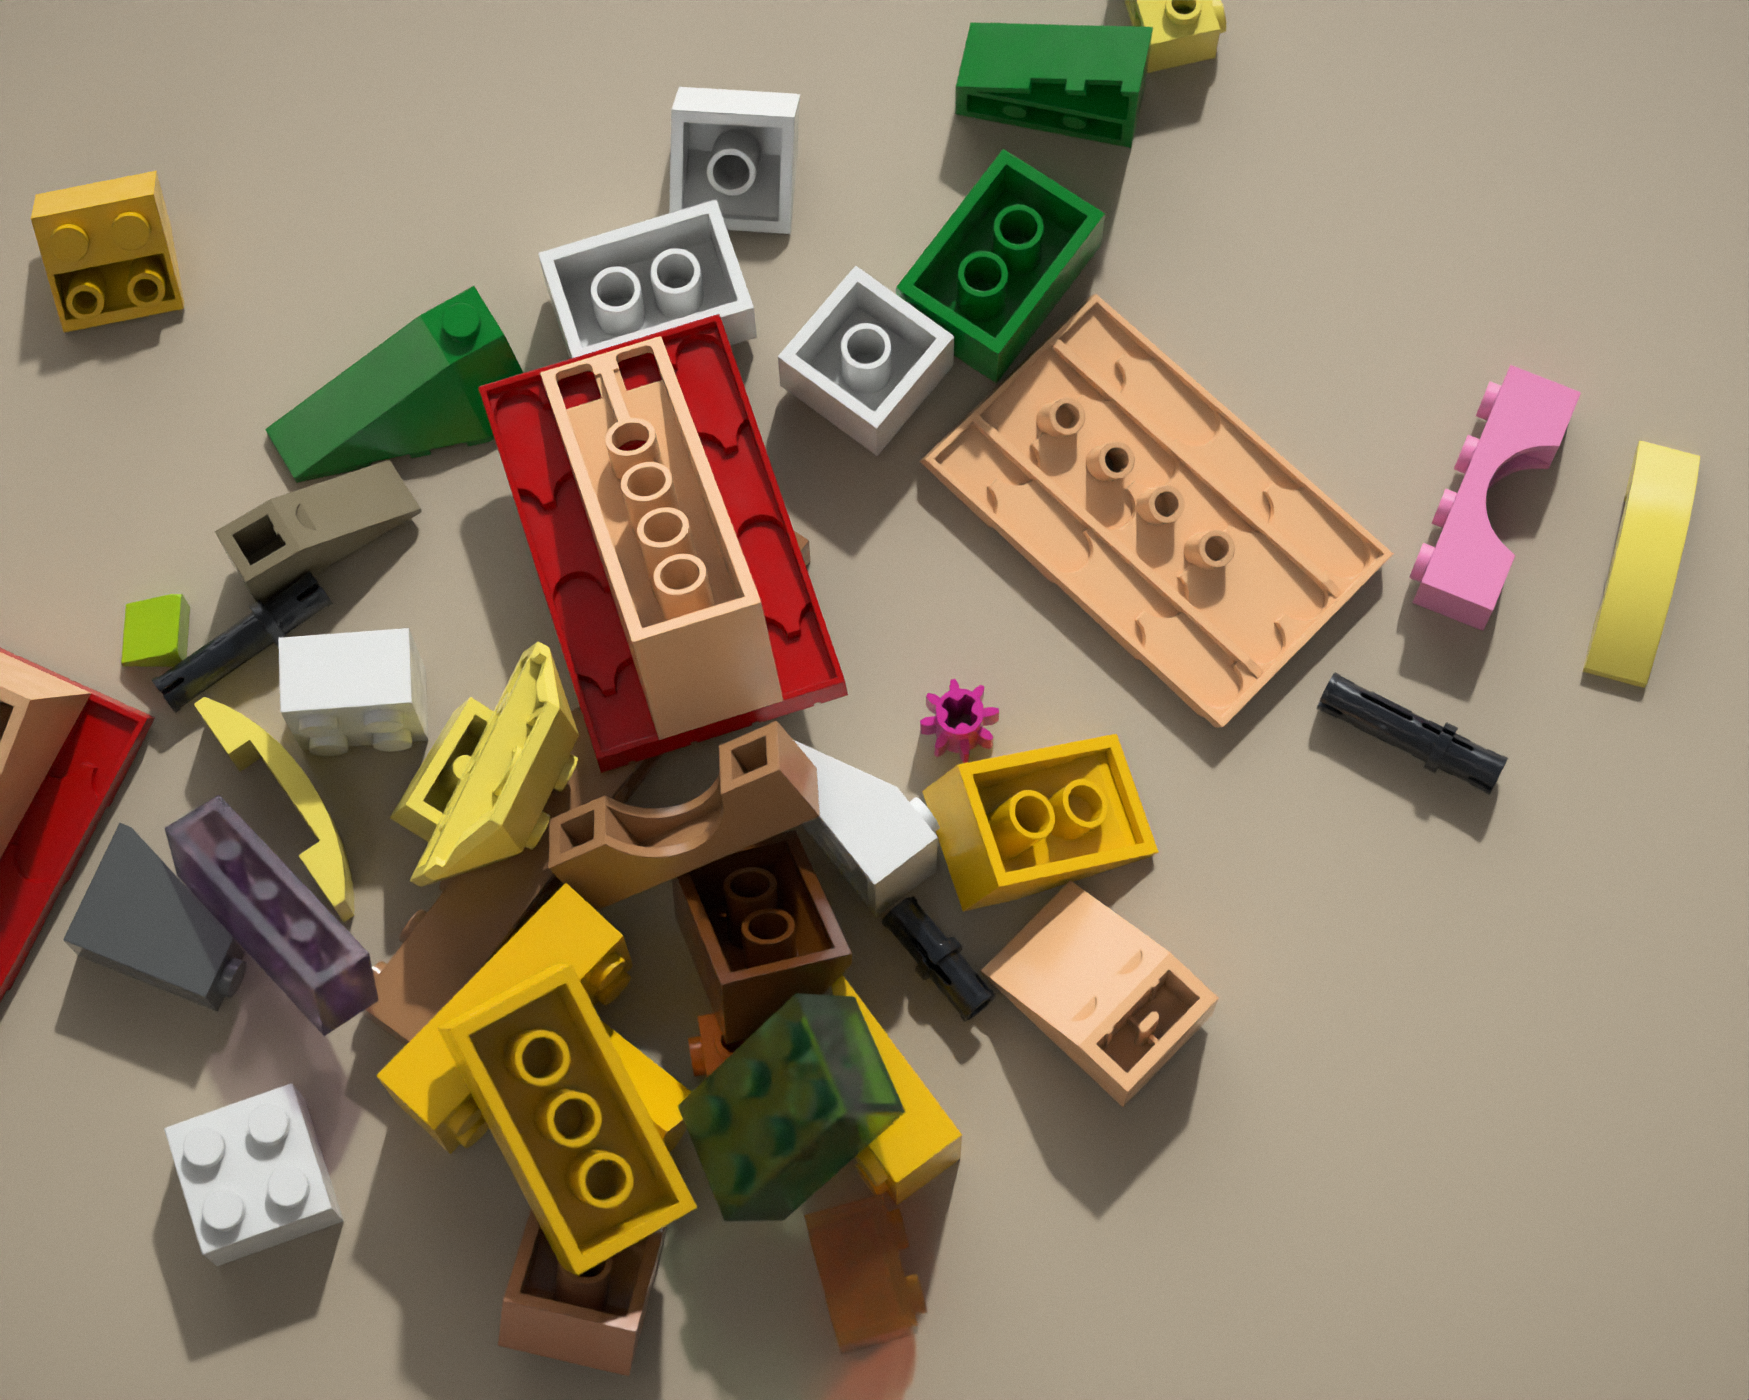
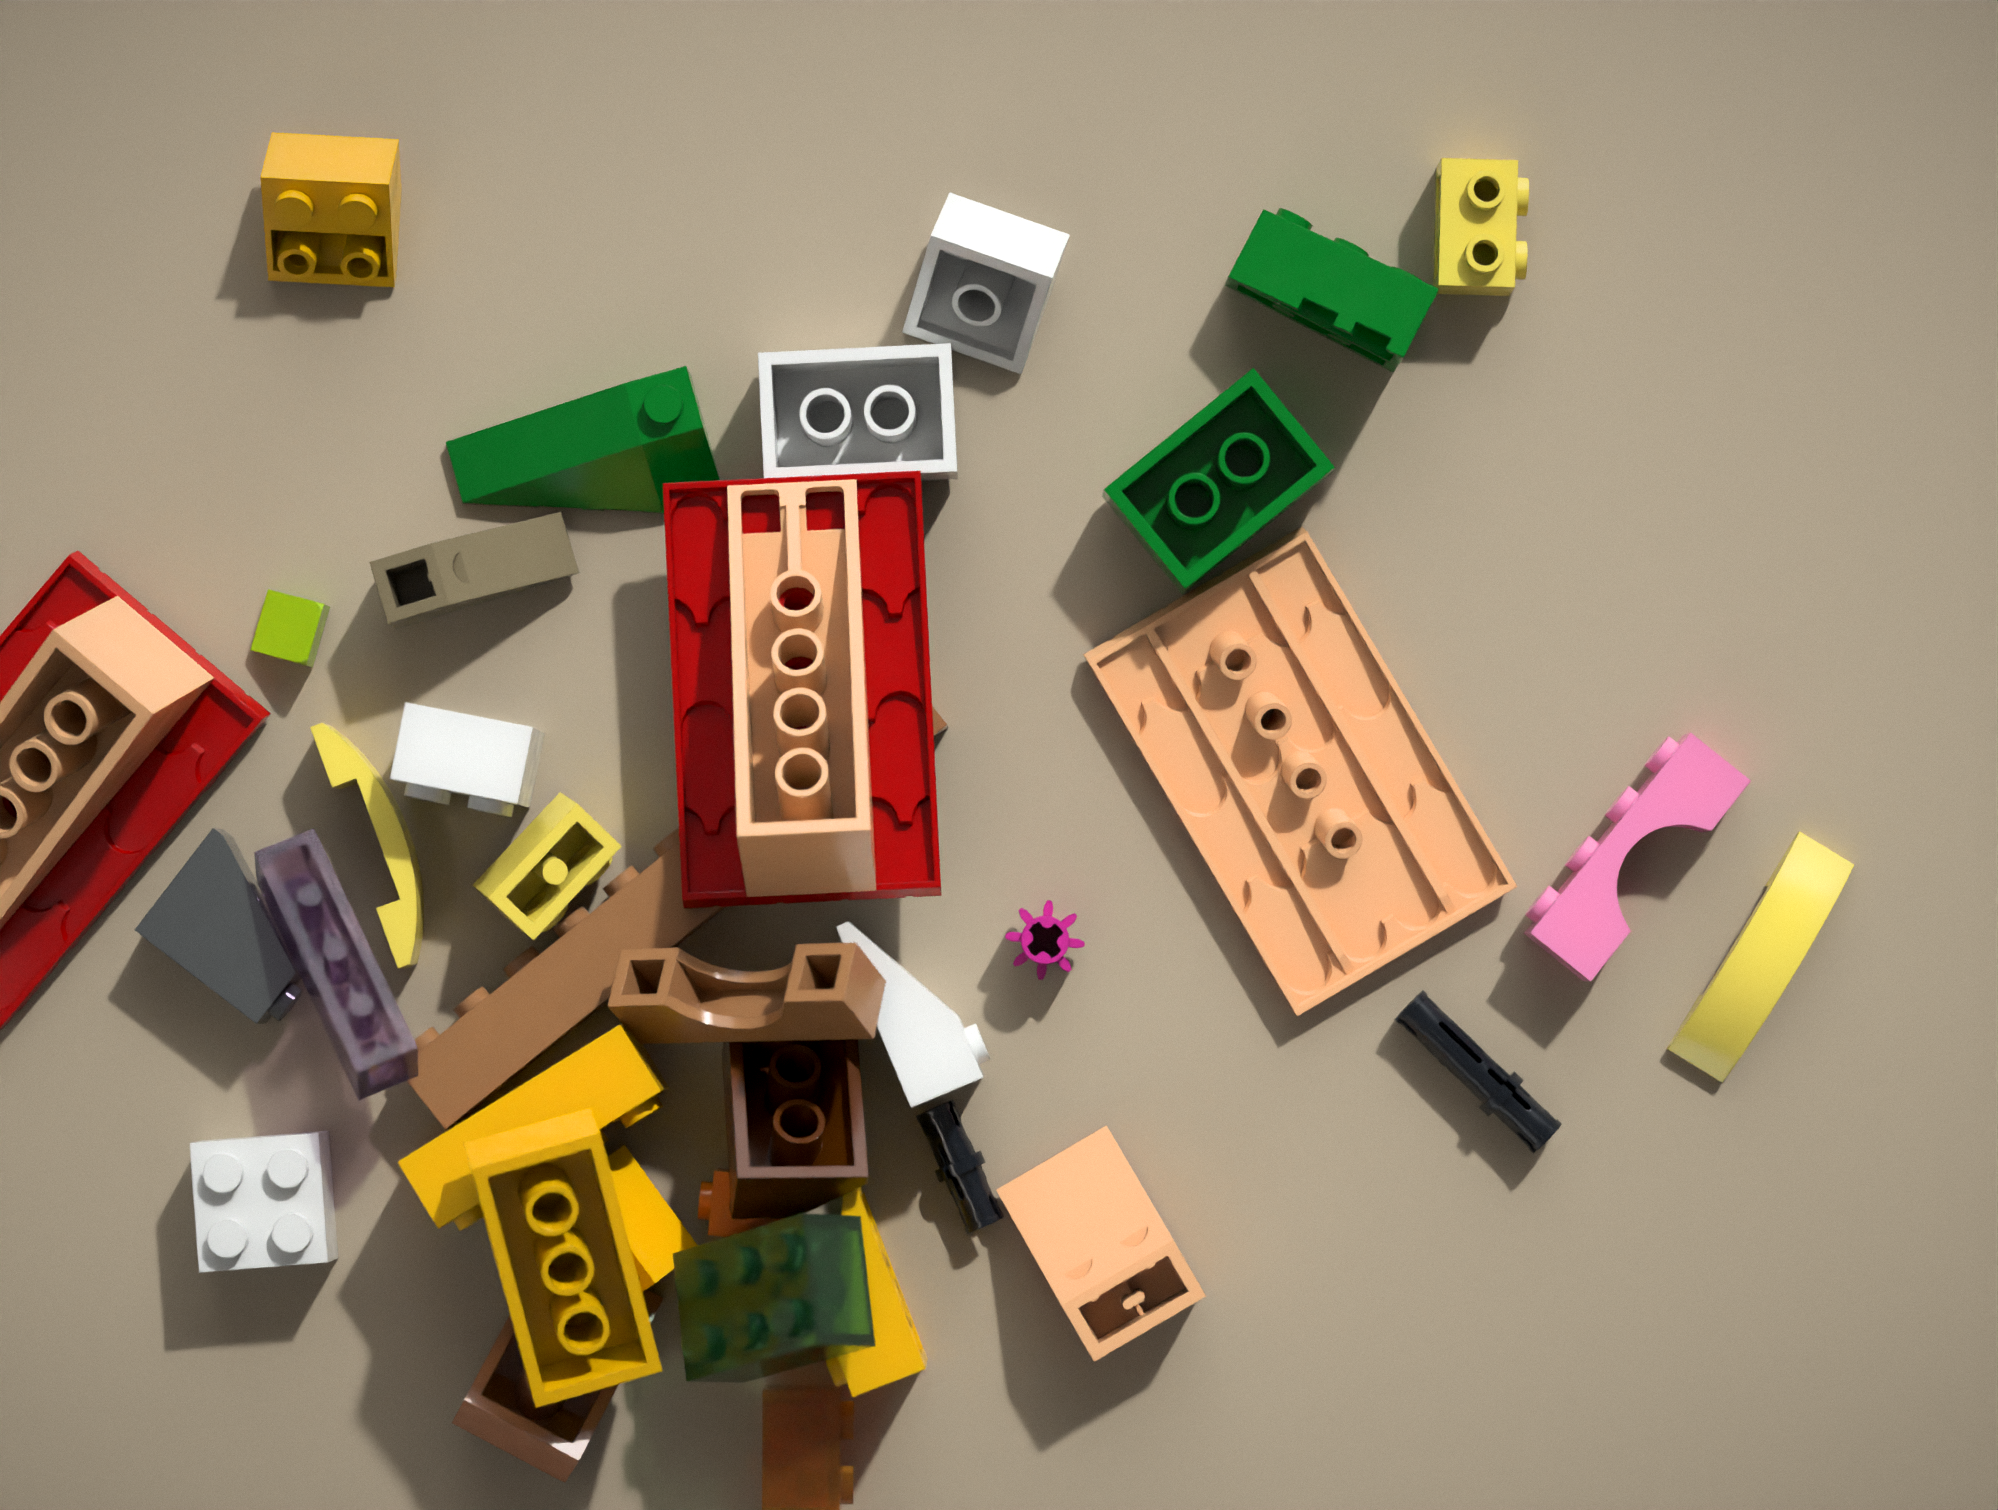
camera: 15 degrees right, 15 degrees up
(242, 641) = (373, 663): black pin -> none
(508, 775) = (589, 900): light yellow wedge -> none
(866, 360) = (1056, 546): white brick -> none
(1038, 820) = (1093, 1061): yellow slope -> none

